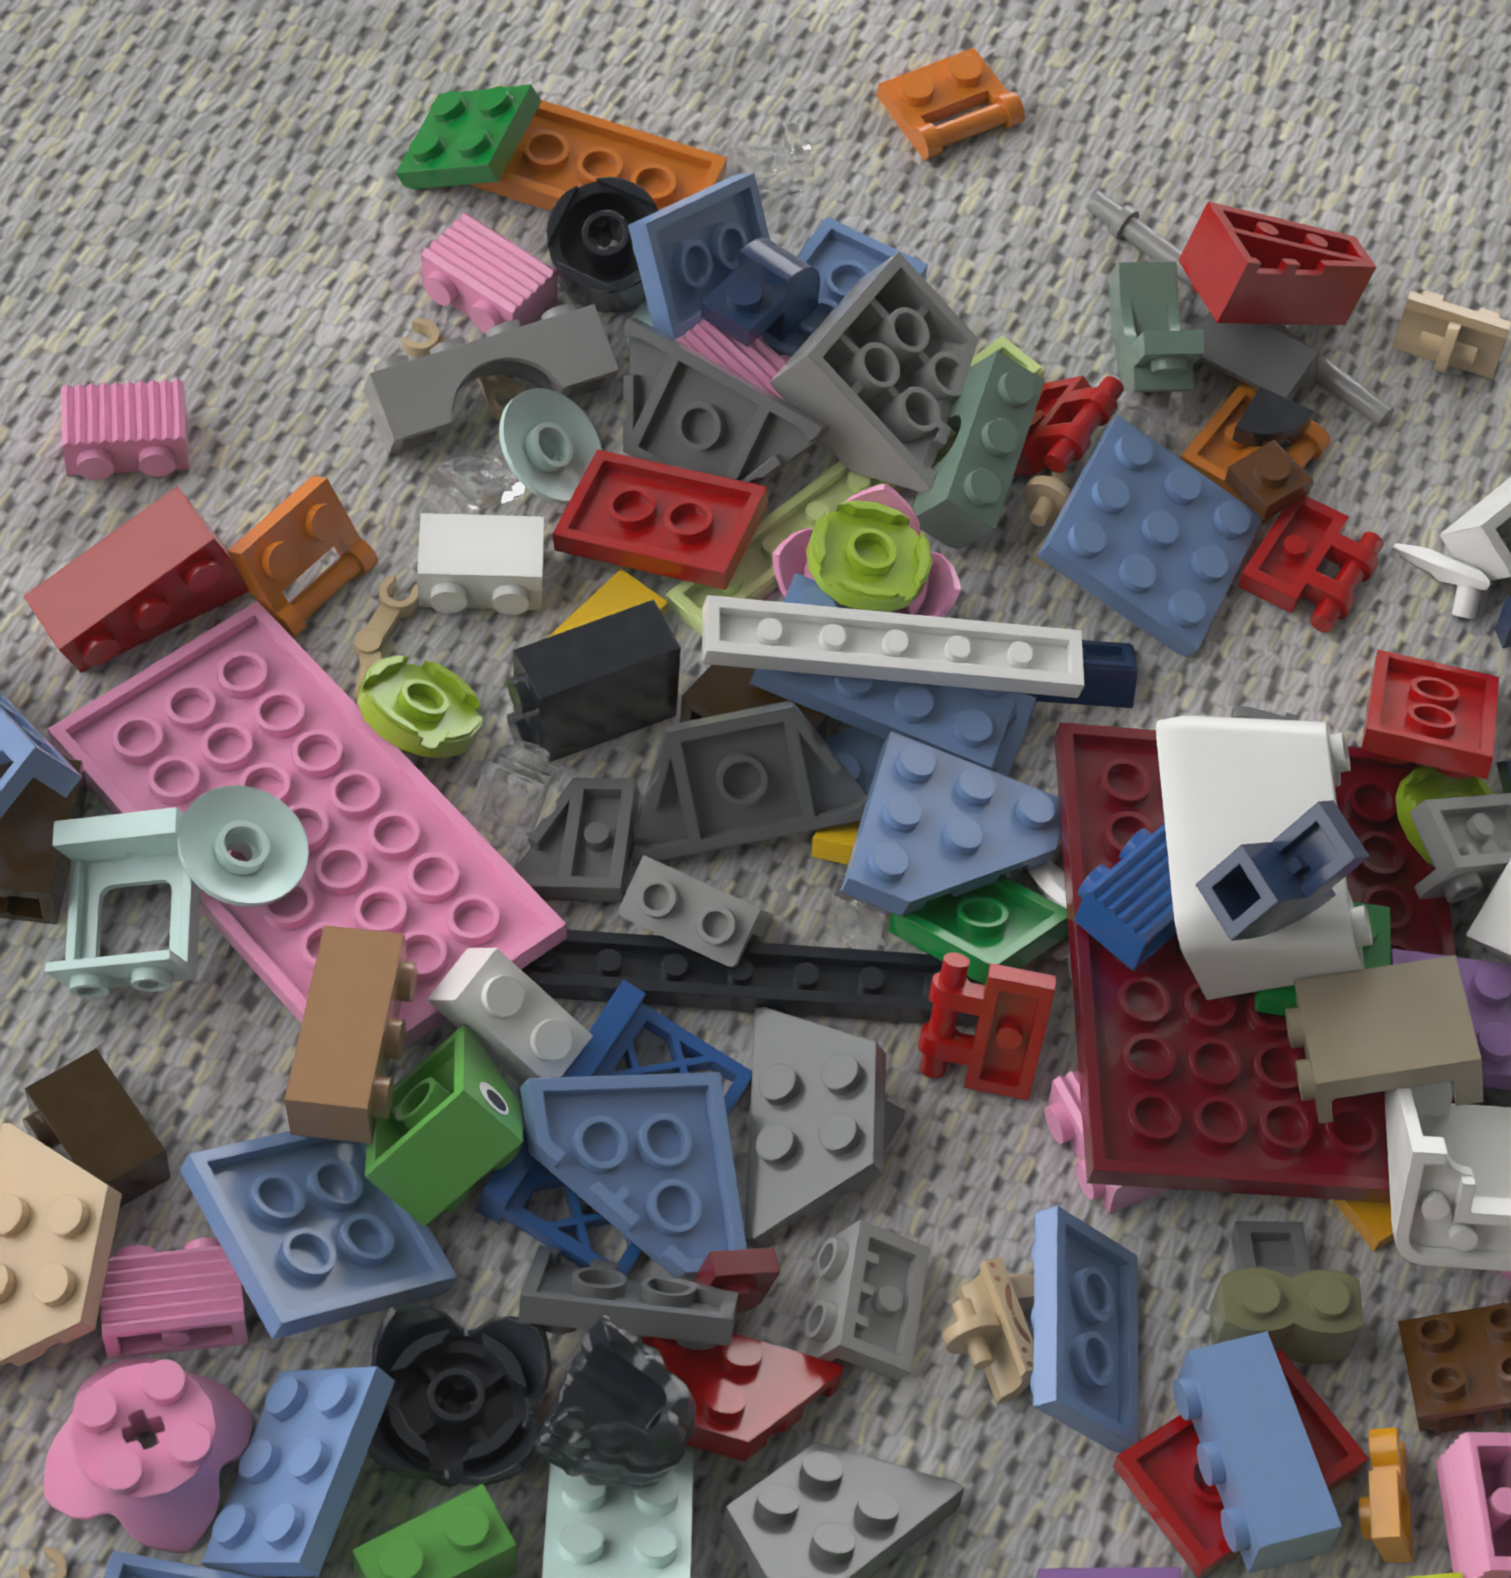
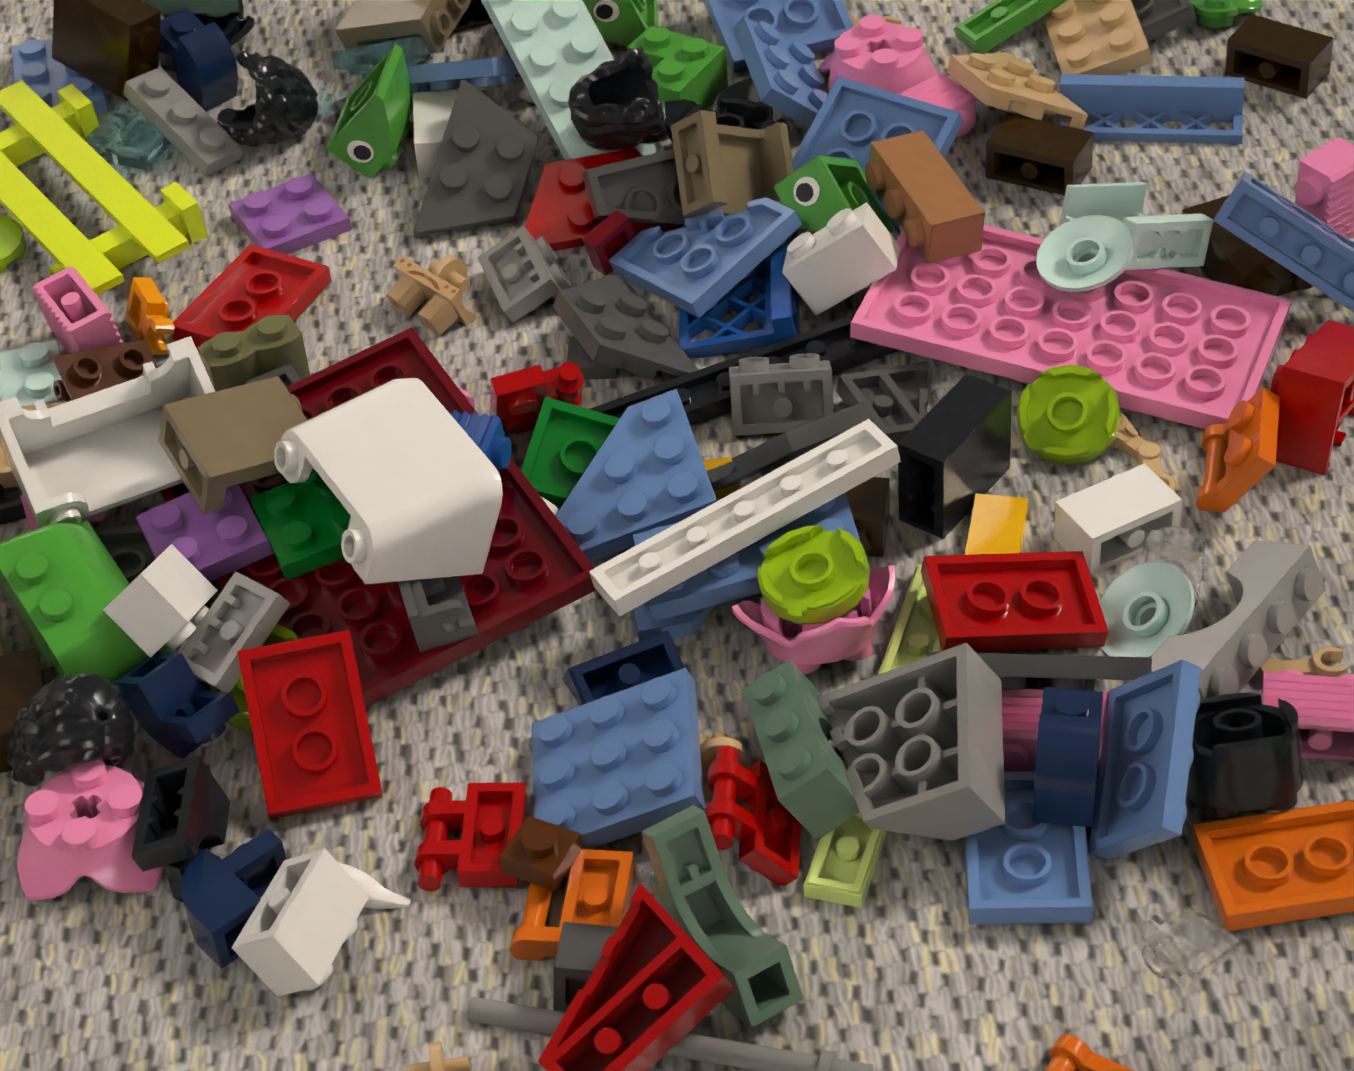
camera: 160 degrees right, 15 degrees down
(483, 1267) = (727, 164): none -> dark tan panel
(1085, 1330) = (377, 288): medium blue plate -> none
(1256, 1453) = (238, 272): medium blue brick -> none
(1270, 419) = (565, 900): black tile -> none
(1283, 880) = (353, 385): dark blue brick -> none

